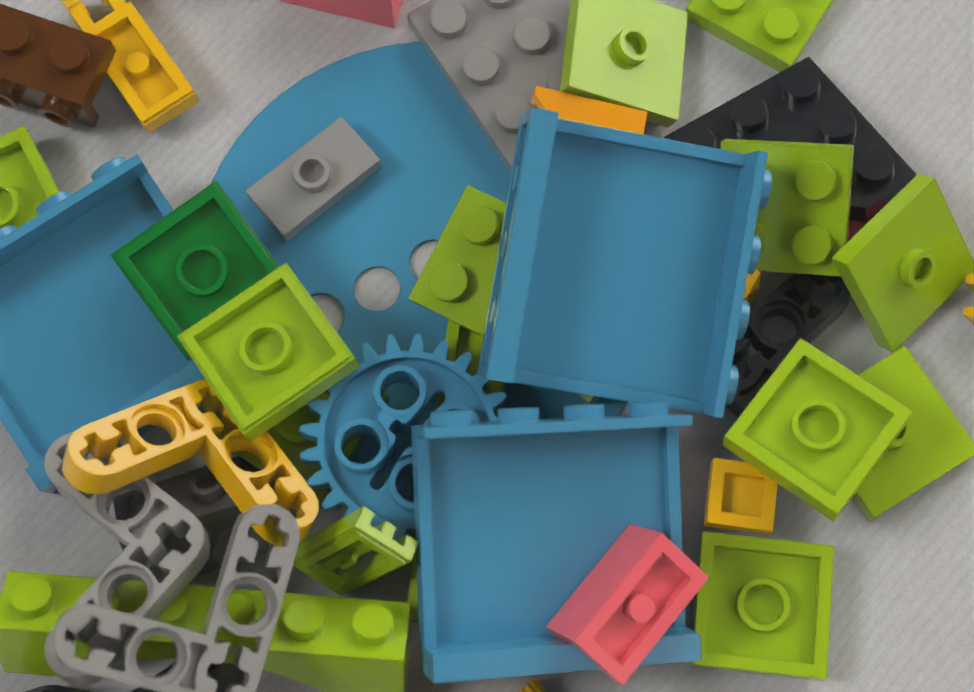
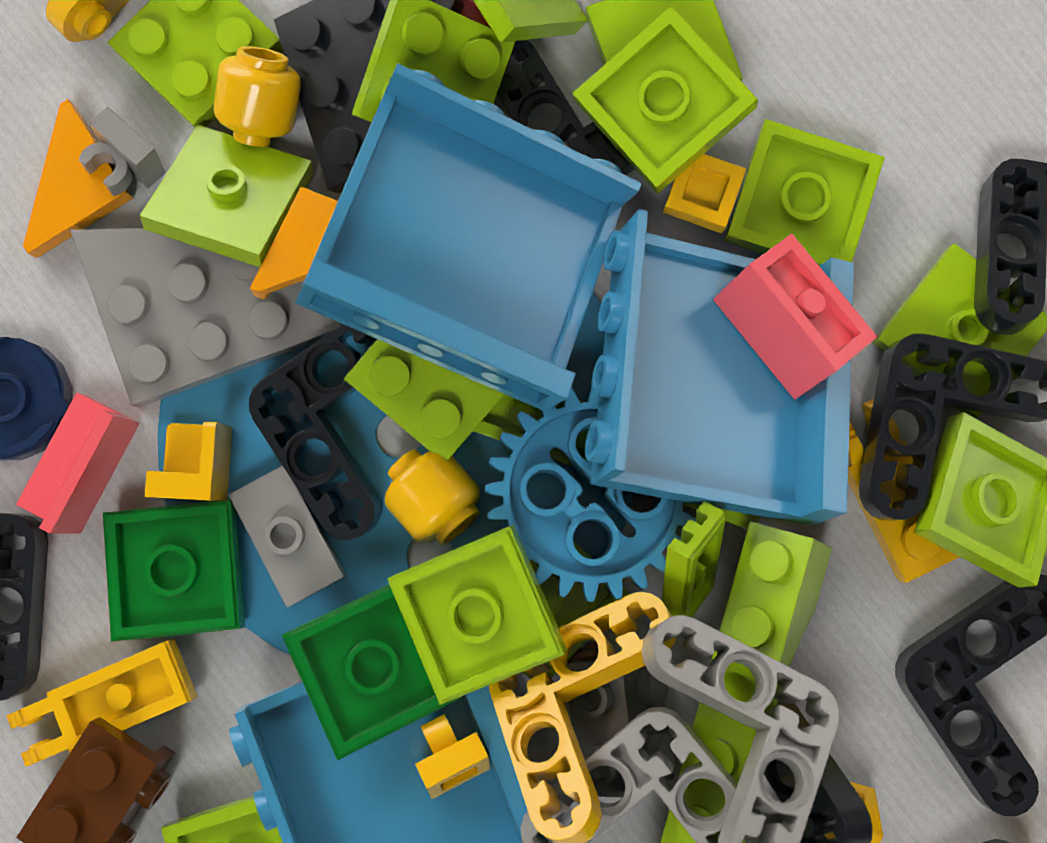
camera: 75 degrees left, 10 degrees up
(127, 365) = (452, 760): none -> yellow tile
(261, 86) = (173, 570): none -> green plate
(364, 82) = (193, 463): none -> yellow panel
(375, 297) = (432, 496): none -> yellow head
(440, 168) = (310, 402): none -> black beam
(726, 55) = (257, 95): none -> yellow head

